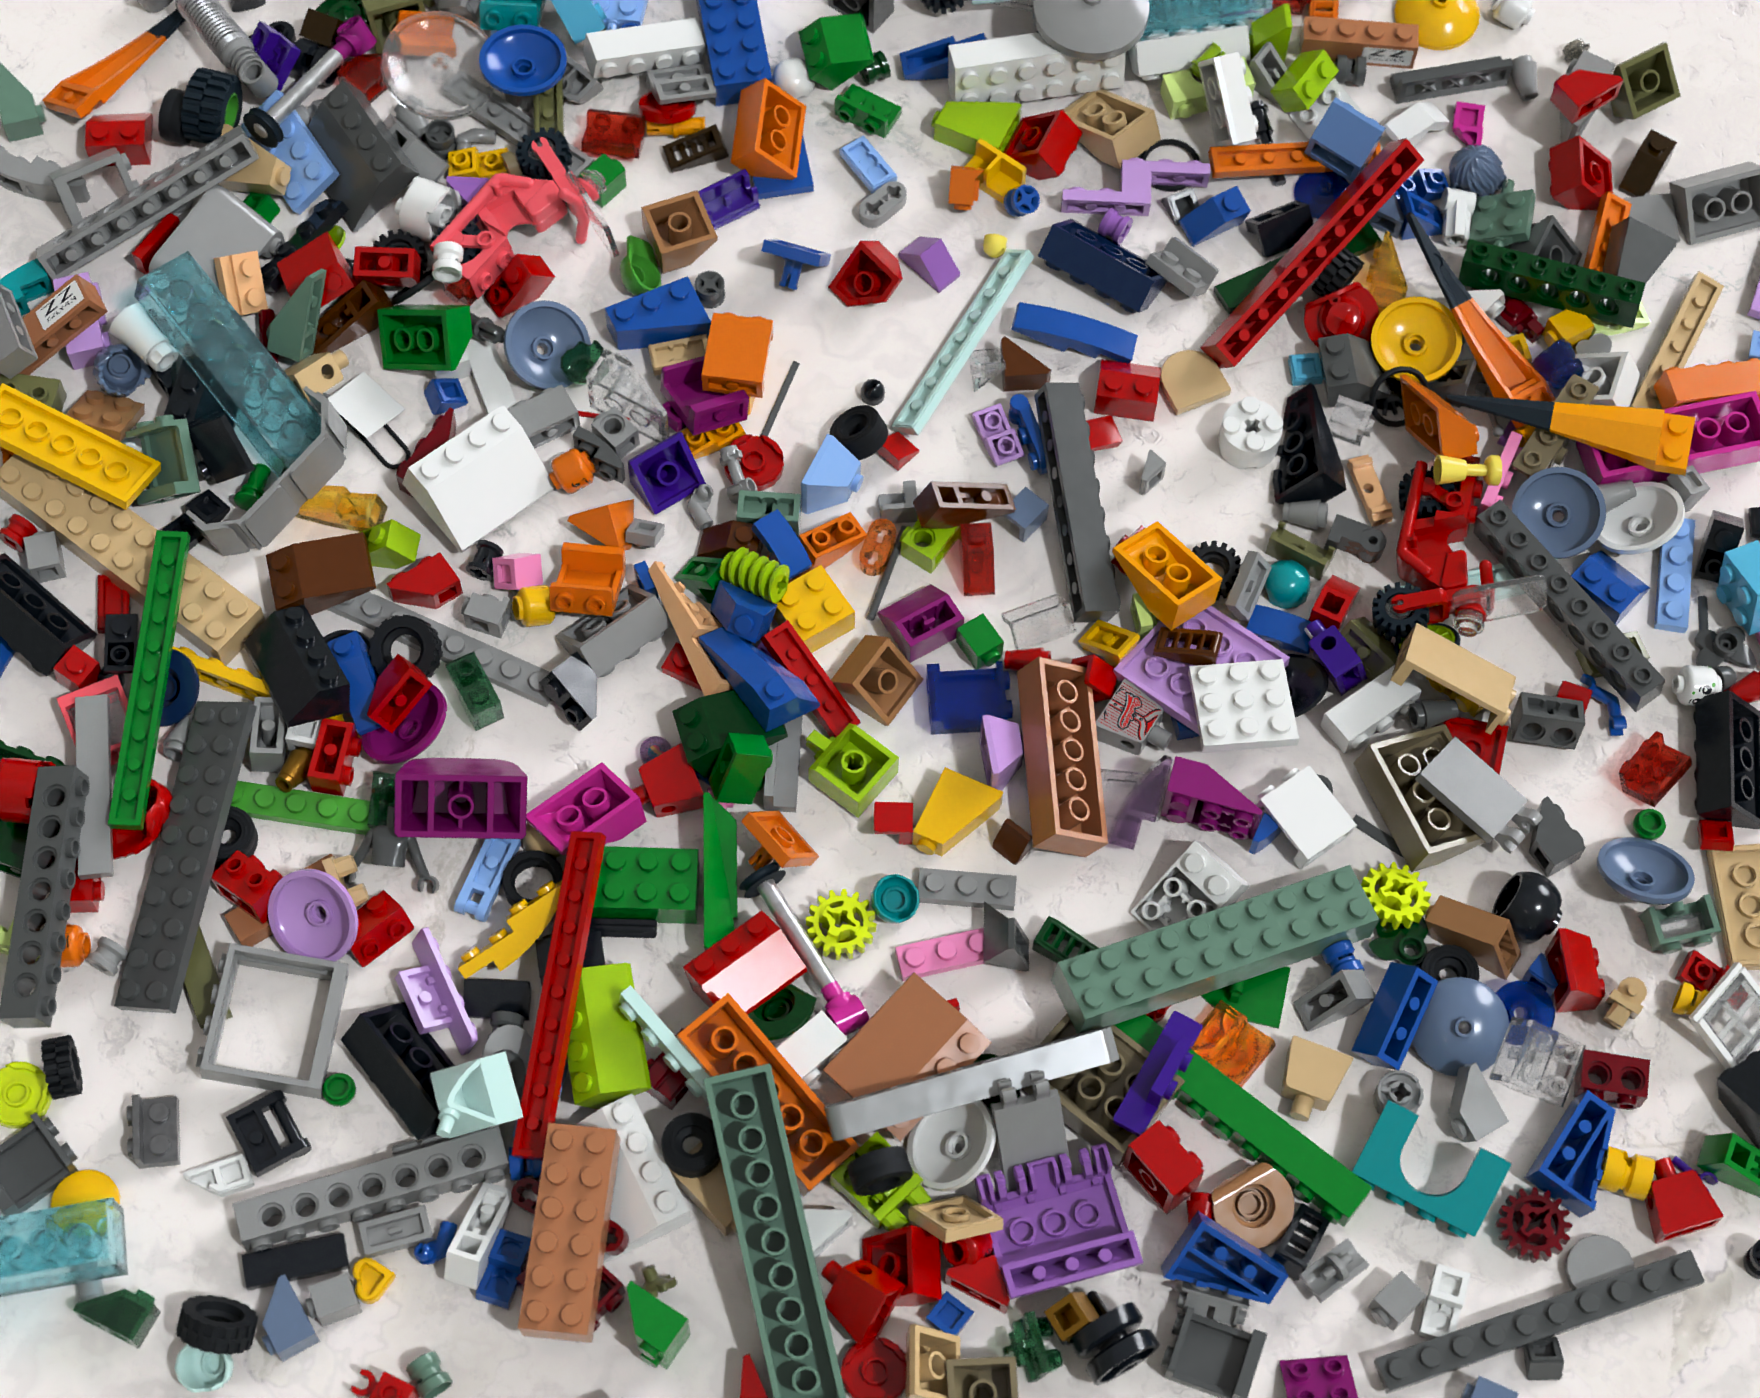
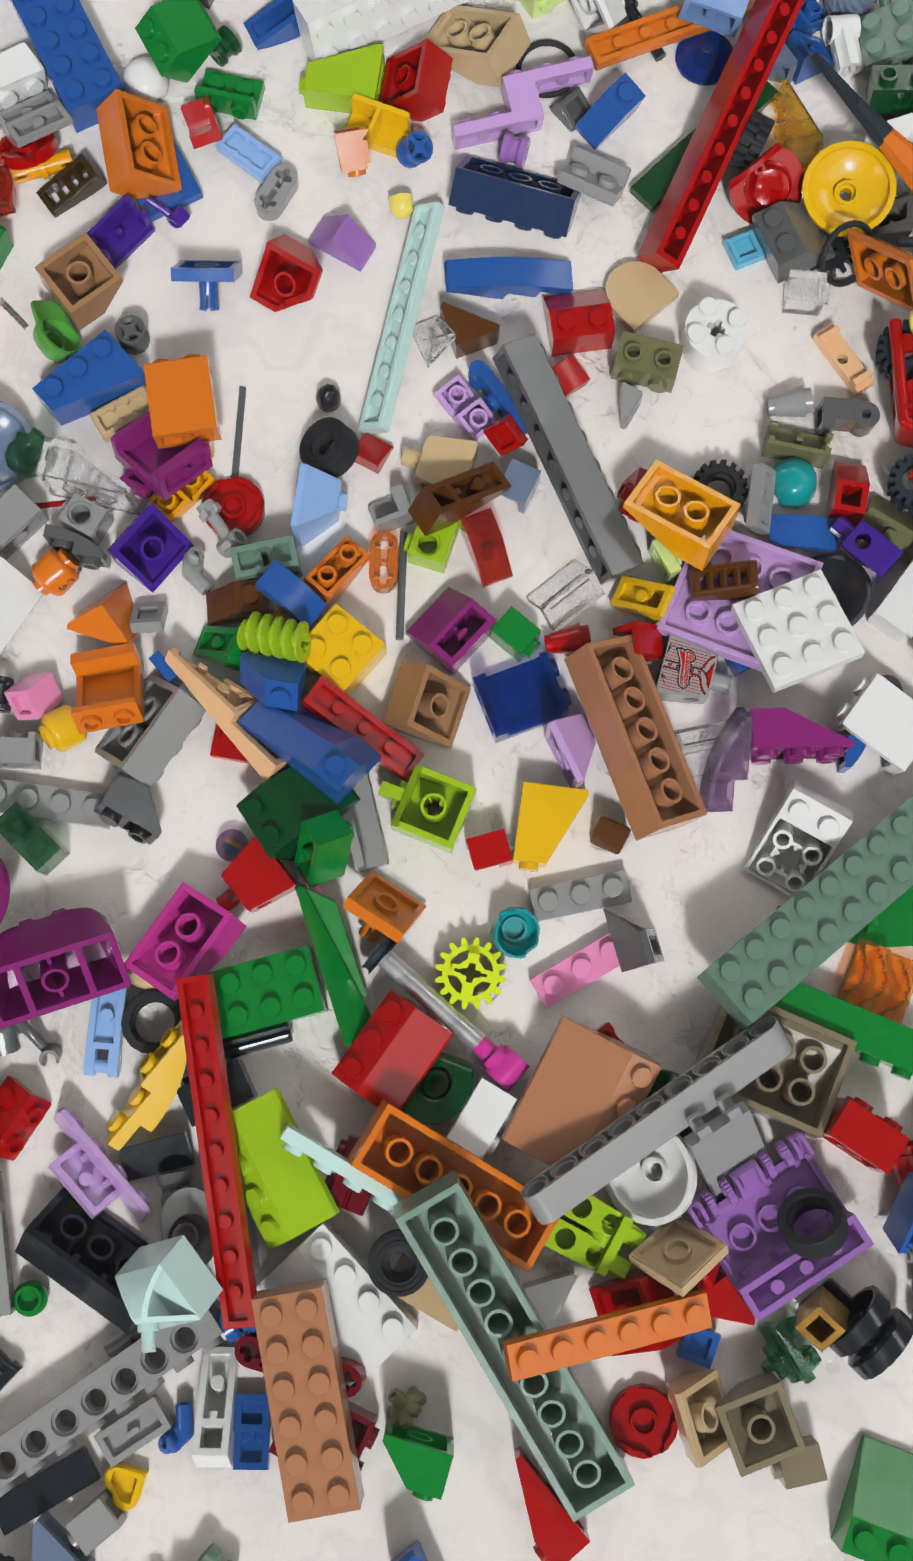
camera: 15 degrees left, 15 degrees up
(782, 202) = (176, 218): none -> dark purple hand
(833, 126) = (201, 122): none -> red panel
(861, 1297) = (614, 1374): red torso -> none
(865, 1253) = (606, 1335): none -> orange plate
(879, 1170) = (594, 1238): black tyre -> none
(960, 467) = (440, 459): none -> tan torso
(1026, 466) = (505, 435): none -> red tile
(1062, 932) = (670, 925): dark green slope -> none
(1093, 1237) = (820, 1245): none -> black tyre
(1158, 1073) = (835, 1047): dark purple bracket -> none
(1179, 439) = (647, 362): none -> olive brick
(1281, 227) = (677, 104): black panel -> none
(1309, 456) = (776, 344): black wedge -> none

